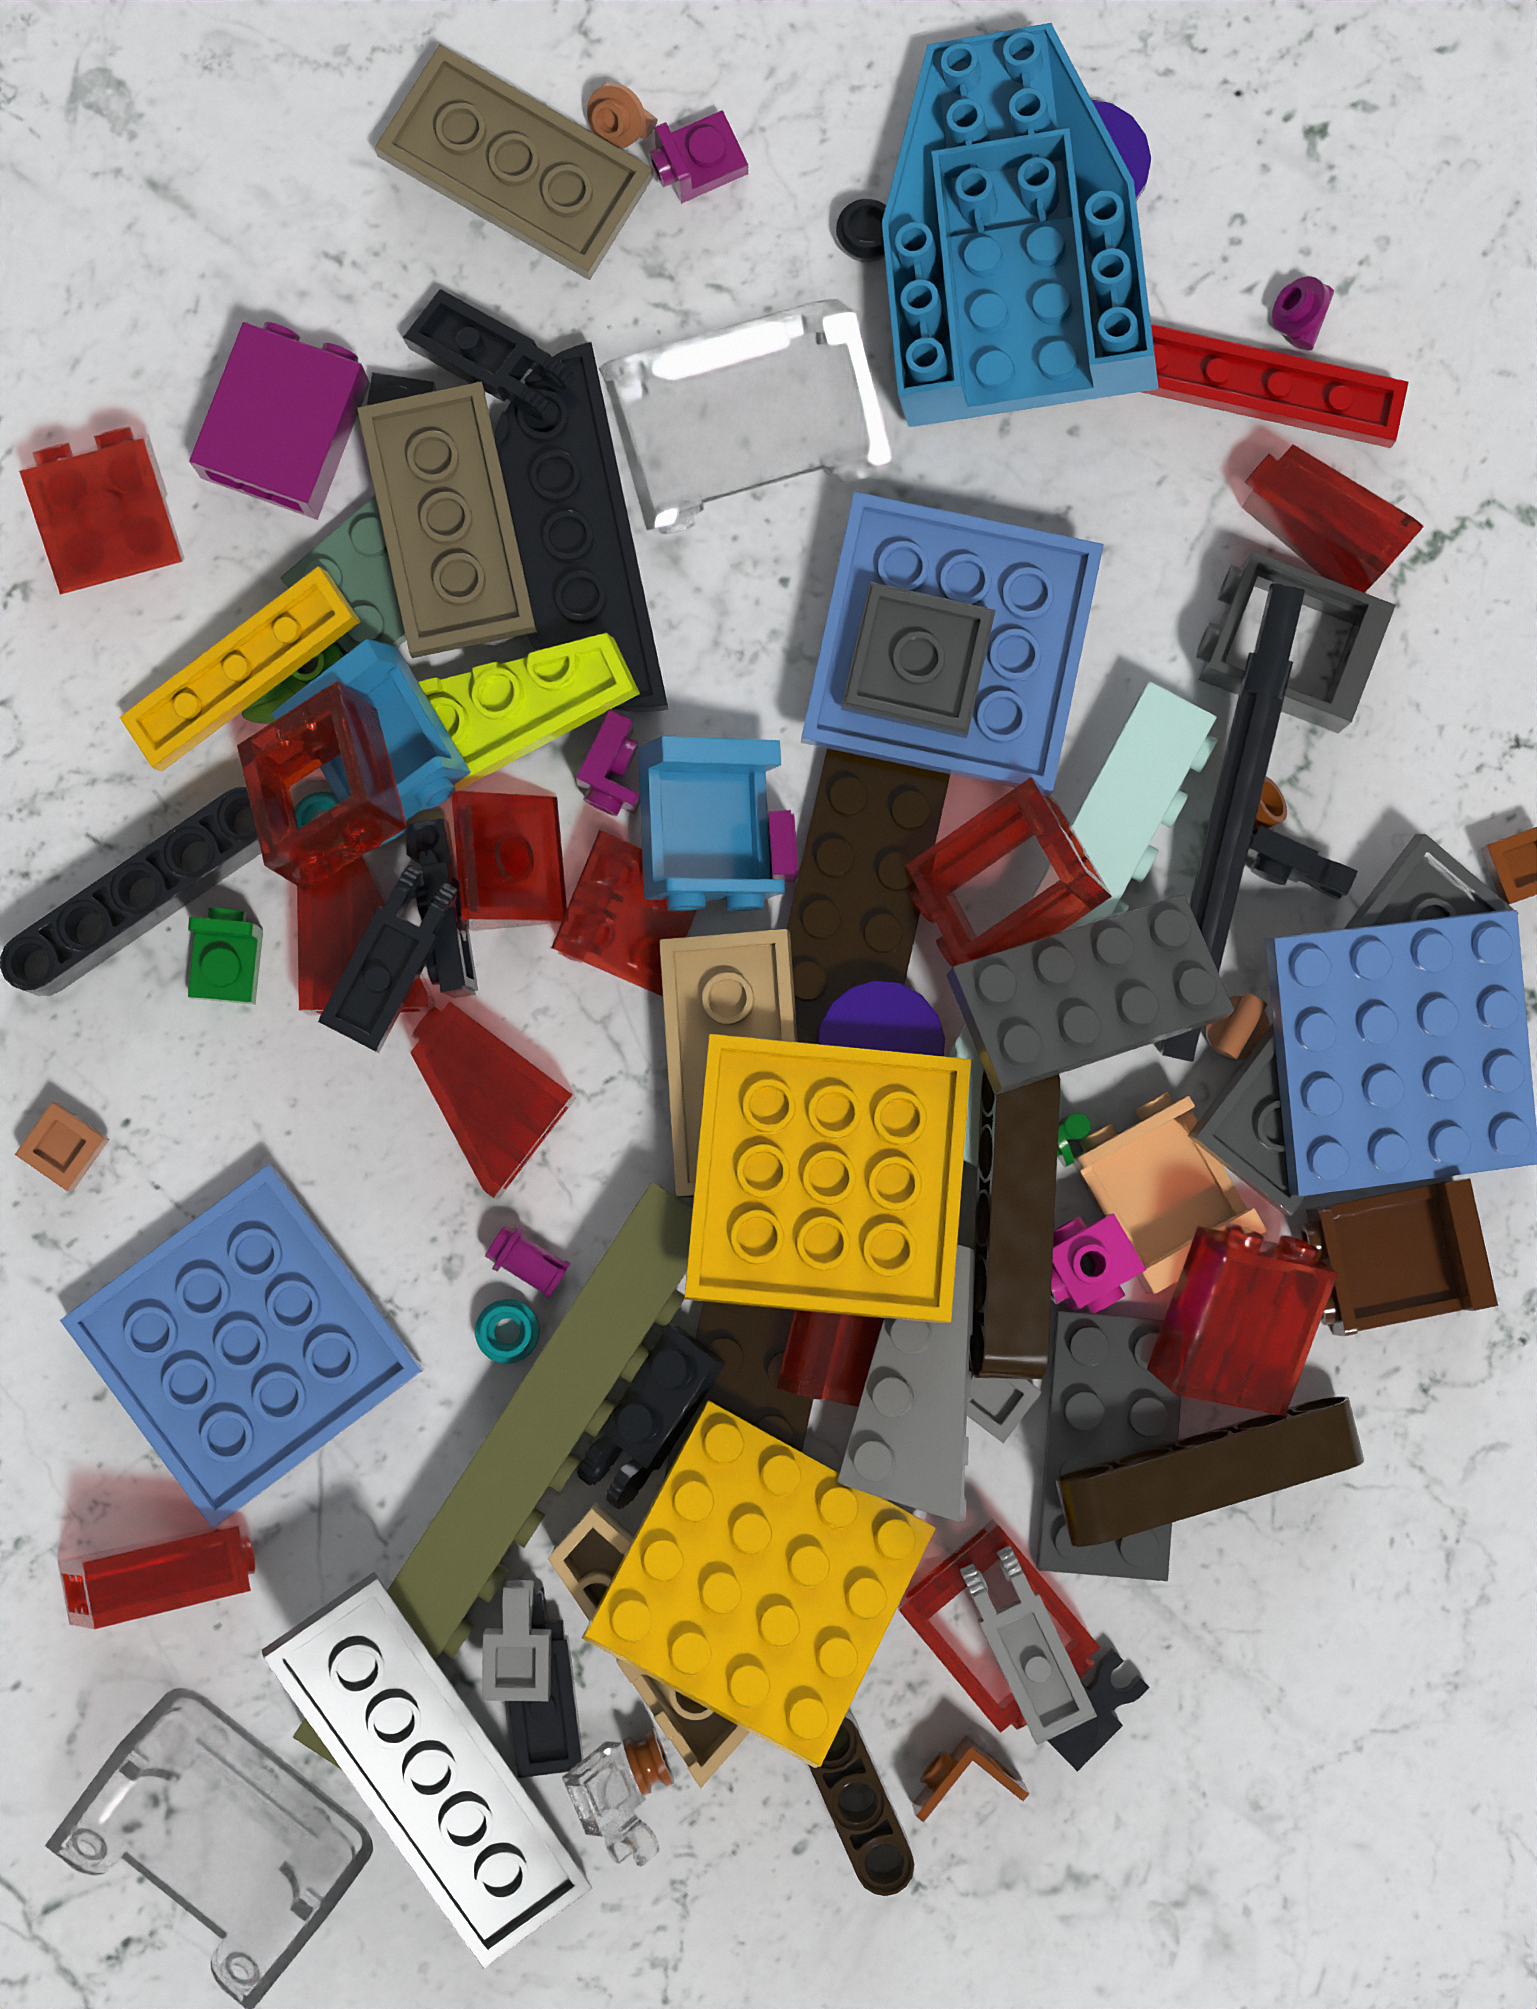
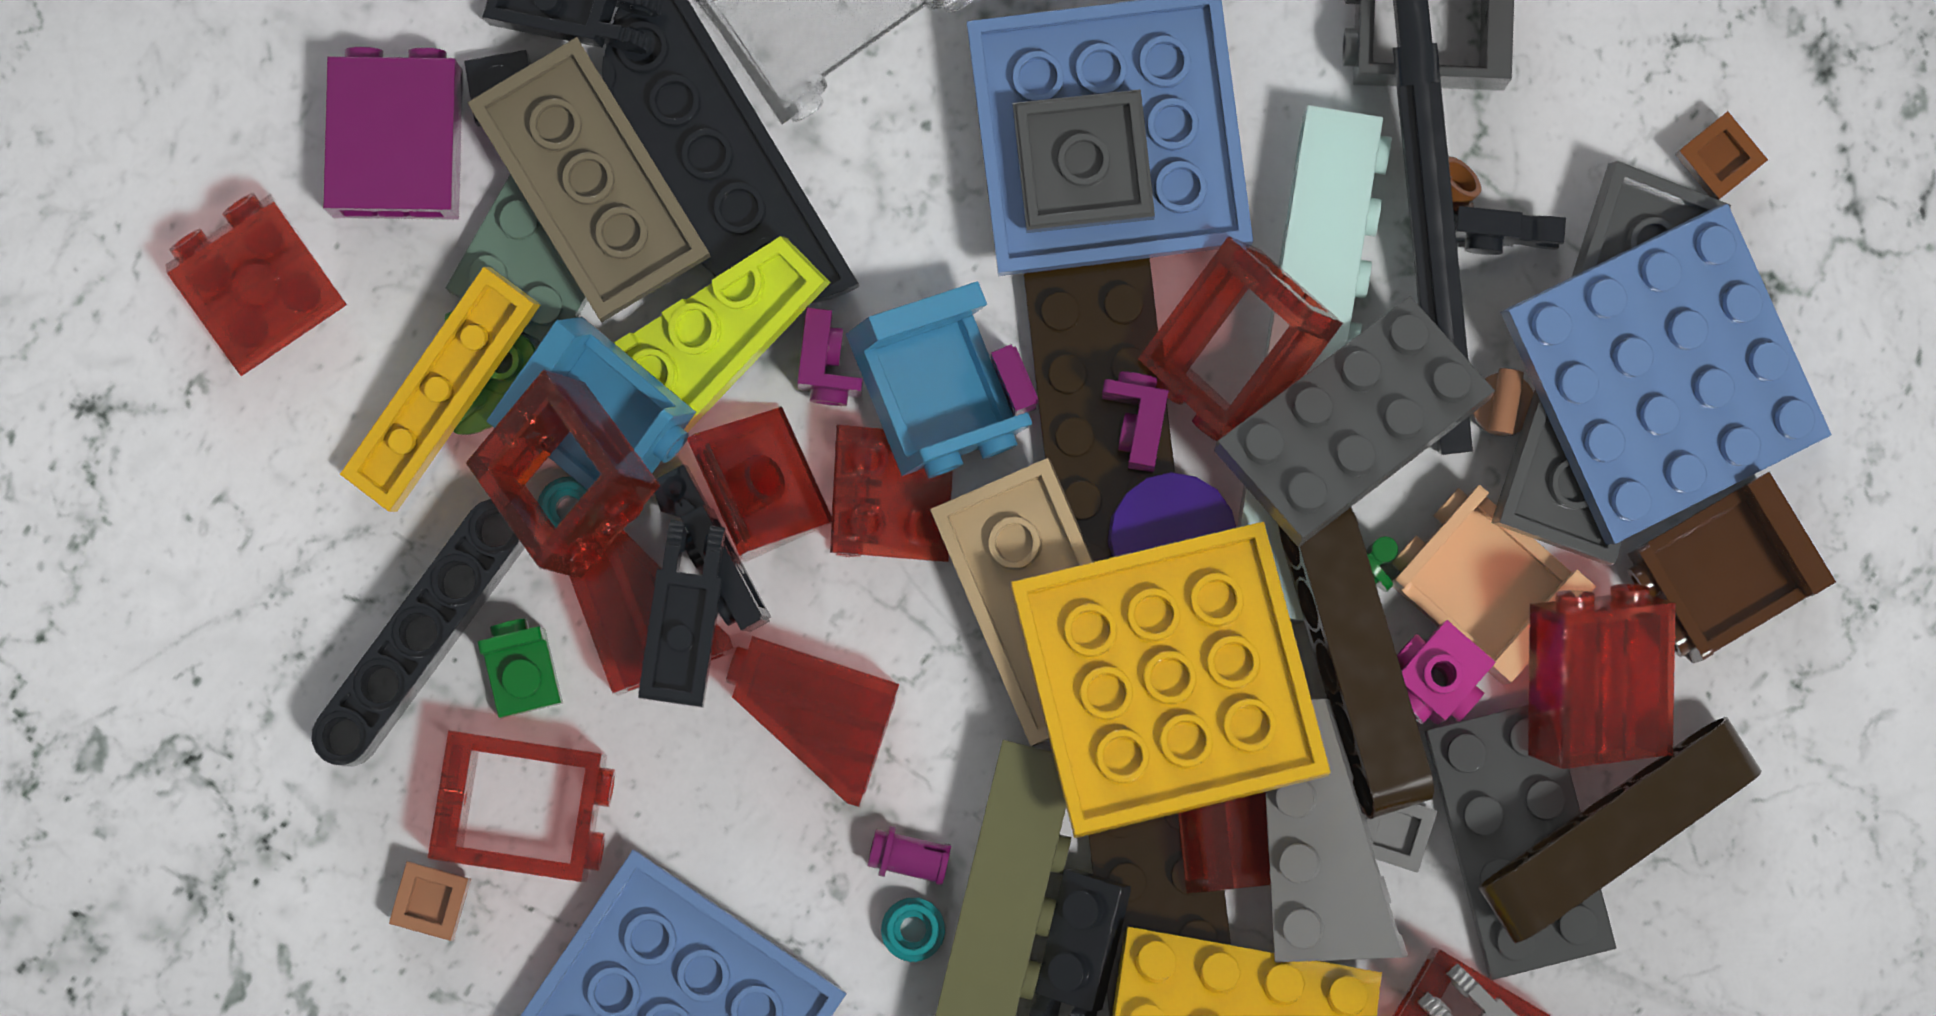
camera: 15 degrees left, 0 degrees up
(122, 1054) = (456, 794): none -> clear red window
(886, 934) = (1142, 431): none -> magenta bracket

